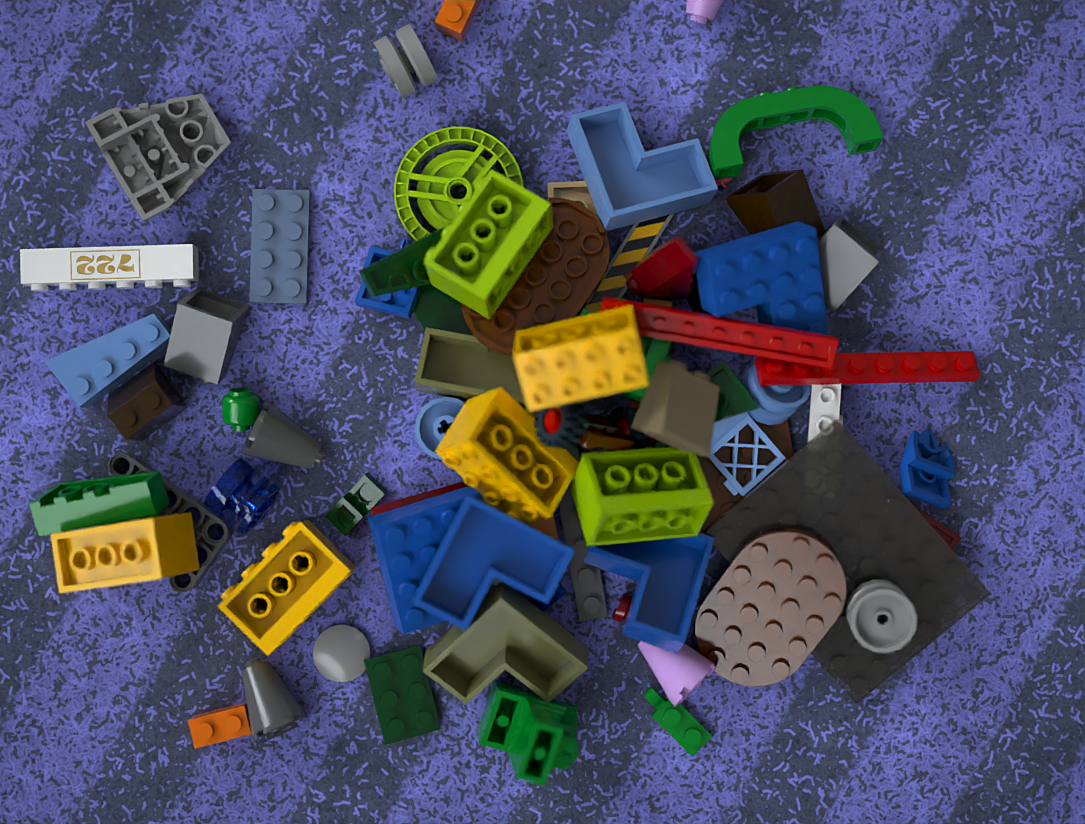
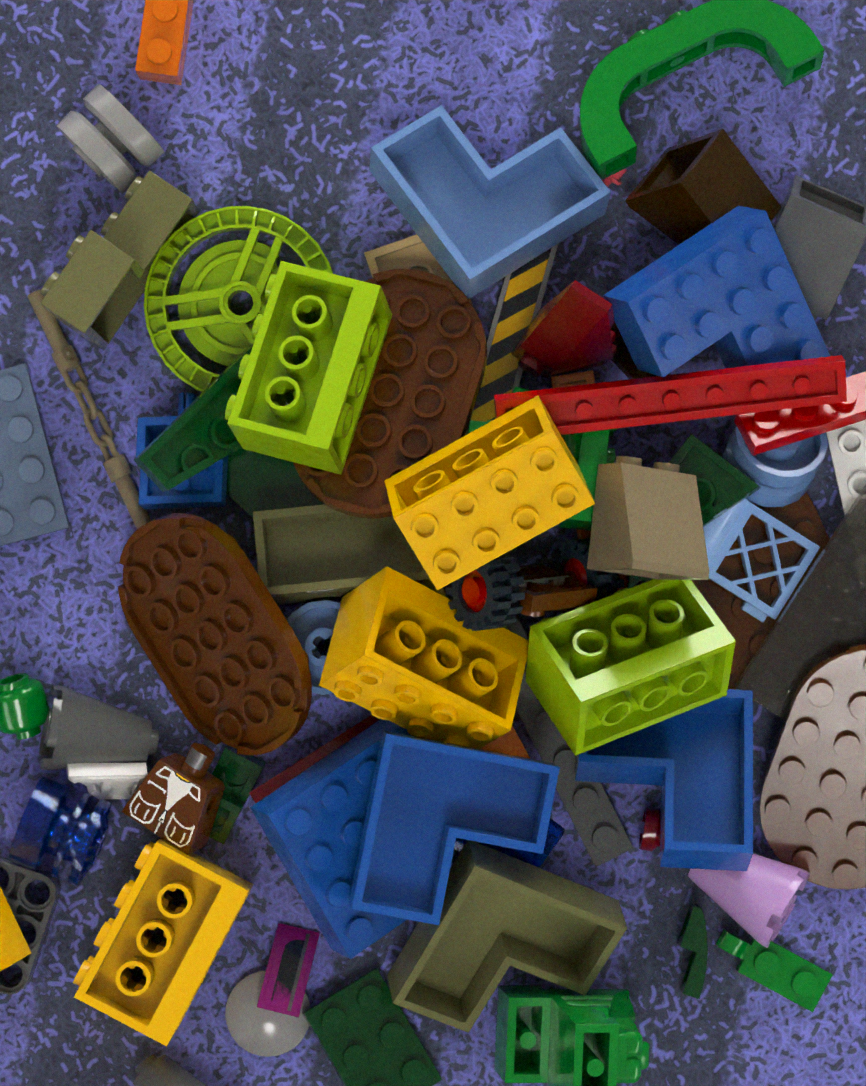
camera: 20 degrees left, 0 degrees up
(284, 473) = (108, 779): none -> white tile
(324, 499) = (179, 799): none -> reddish brown torso
(336, 196) = (67, 361): none -> dark tan piece
(362, 629) = (288, 970): none -> magenta slope
(376, 148) = (112, 270): none -> olive piece
(378, 398) = (215, 634): none -> reddish brown plate
(630, 687) = (694, 938): none -> dark green slope

